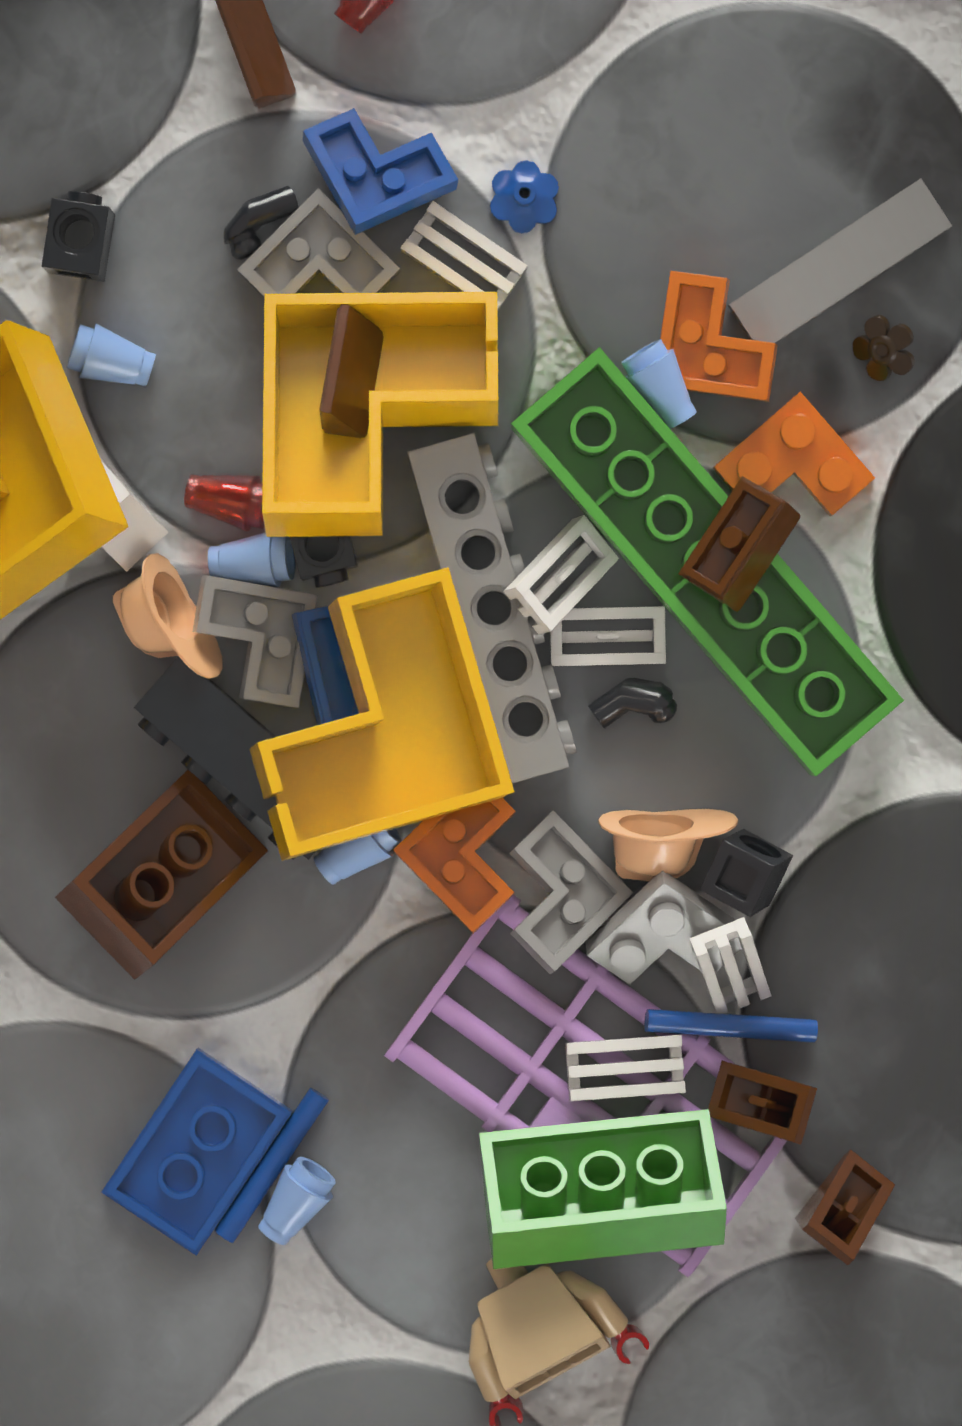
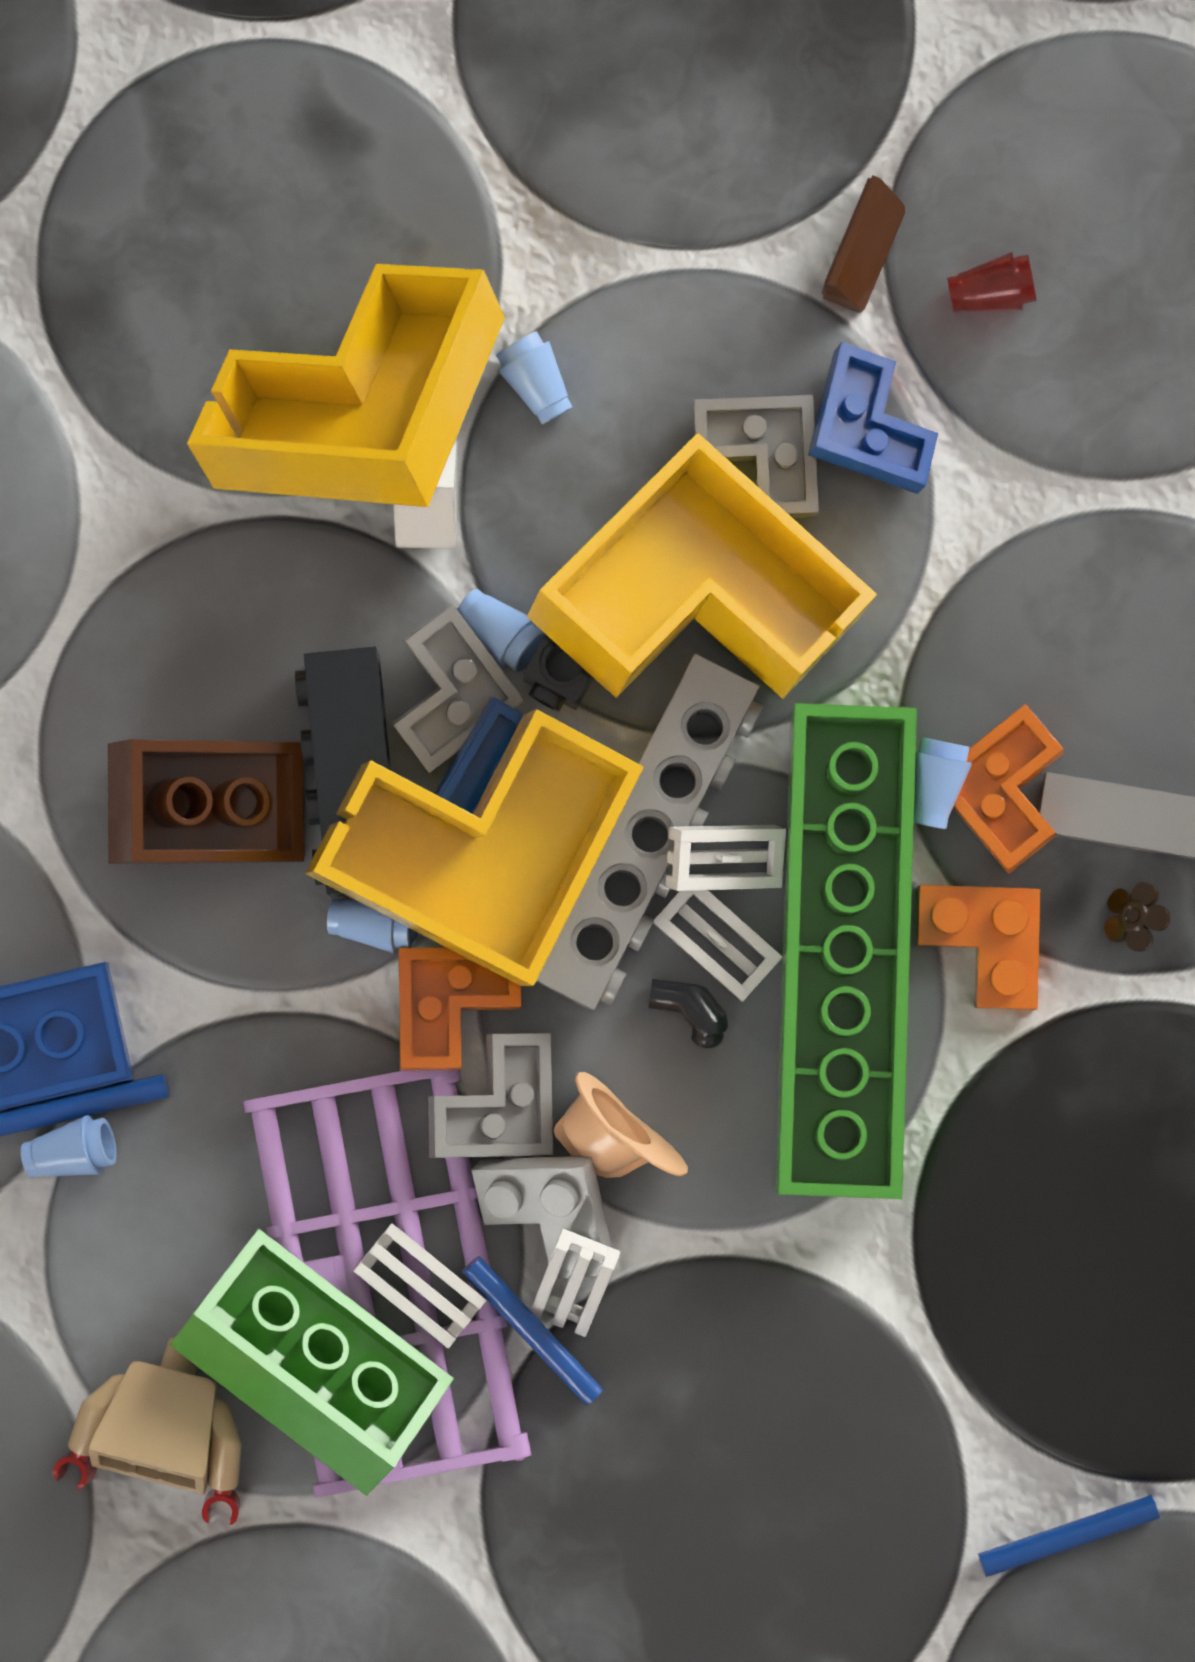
camera: 40 degrees right, 5 degrees down
(85, 262) = (590, 291): black brick -> none
(162, 616) = (390, 605): light nougat piece -> none
(227, 499) = (522, 562): clear red cone -> none
(253, 215) = (744, 371): black arm -> none
(350, 374) = (705, 552): reddish brown slope -> none
(424, 230) = (864, 502): white tile -> none
(519, 211) = (960, 562): blue plant -> none
(740, 544) = (886, 959): reddish brown slope -> none
(746, 872) = (655, 1220): black brick -> none
(761, 1102) = (500, 1411): reddish brown slope -> none
(845, 1206) = (489, 1558): reddish brown slope -> none

